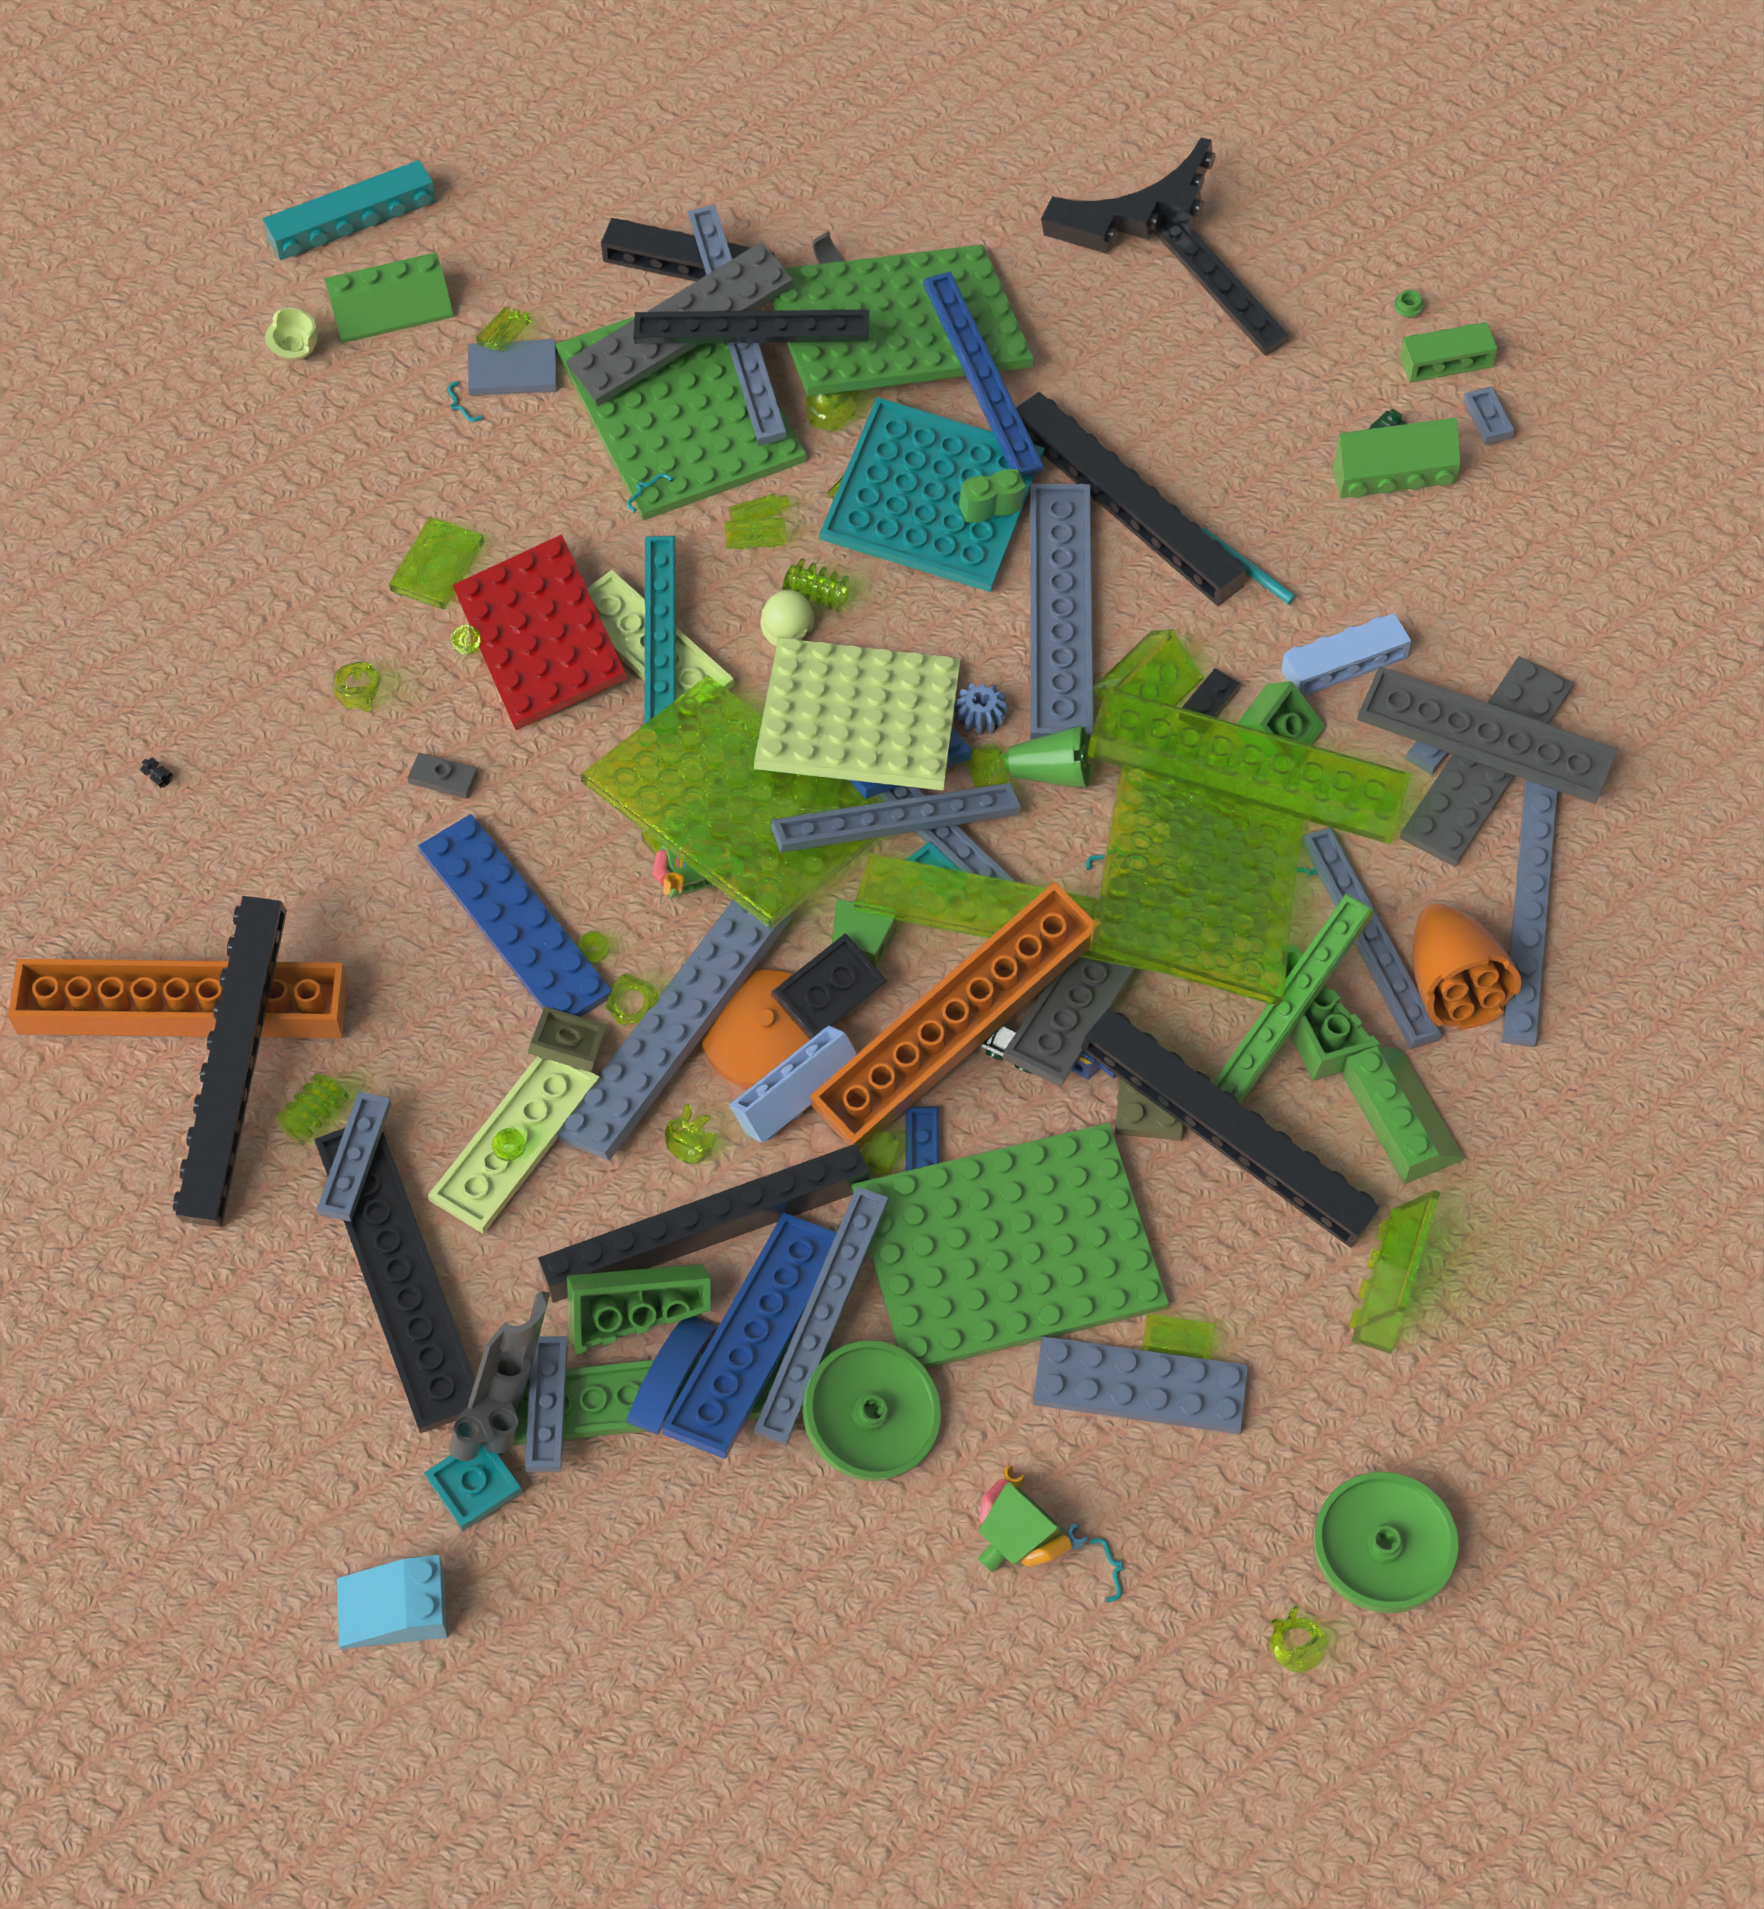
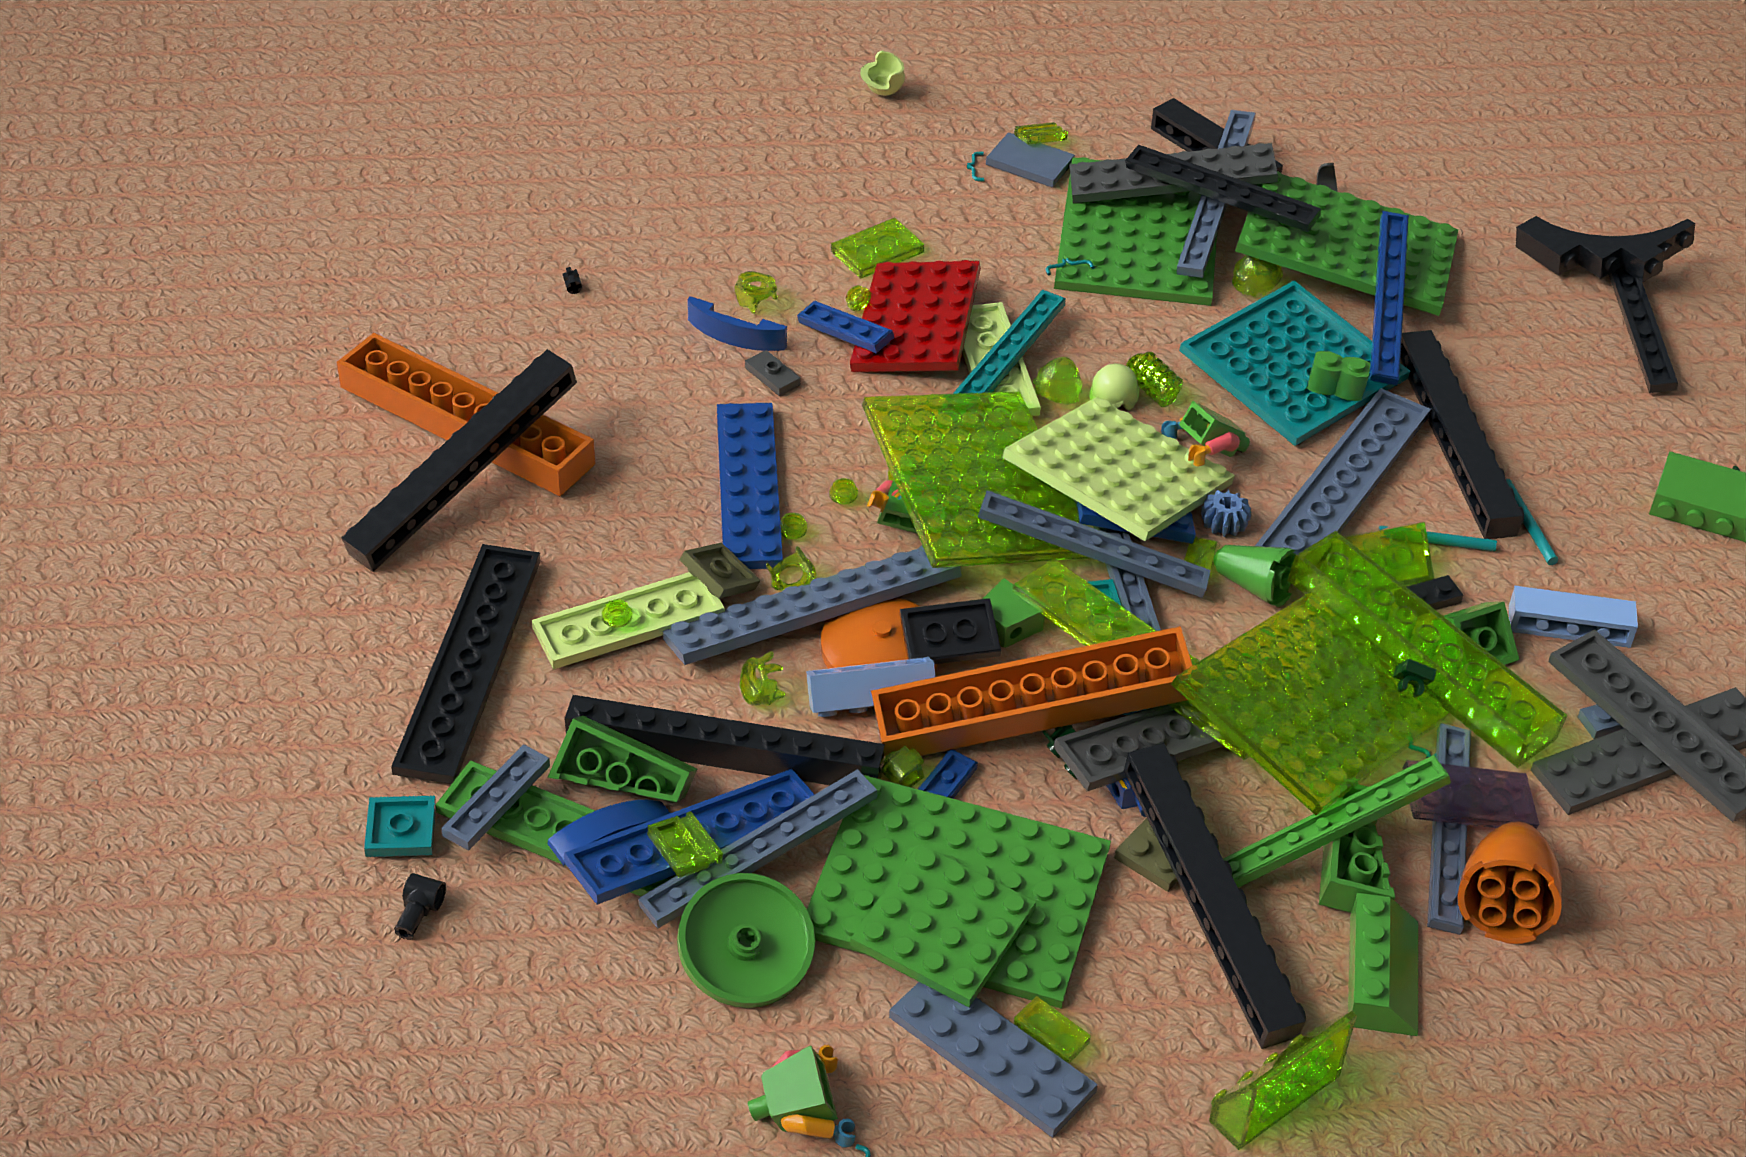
camera: 30 degrees right, 15 degrees down
(309, 1106) = (497, 523): clear neon green piece -> none
(349, 209) = (987, 26): teal brick -> none
(354, 1156) = (497, 565): sand blue plate -> none
(369, 748) = (736, 332): none -> blue slope
(389, 297) = (972, 83): bright green slope -> none
(393, 1603) = (274, 876): medium azure slope -> none
(480, 683) = (845, 326): none -> blue tile
(499, 1388) = (464, 760): dark grey panel -> none
(550, 1543) = (419, 897): none -> black pin
(613, 872) = (843, 491): none -> clear neon green plate
(733, 640) = (1059, 381): none -> clear neon green hair
(755, 533) = (1132, 327): clear neon green plate -> none
(758, 508) = (1146, 315): clear neon green cylinder -> none
(762, 1354) = (684, 844): none -> clear neon green plate
(912, 622) = (1210, 430): none -> torso
(1028, 1293) = (943, 924): none -> bright green plate
(1191, 625) = (1459, 541): none -> teal bar
(1264, 805) = (1414, 674): none -> dark green tile
(1390, 886) = (1478, 798): none -> clear purple plate
(1530, 912) = (1612, 881): sand blue plate -> none

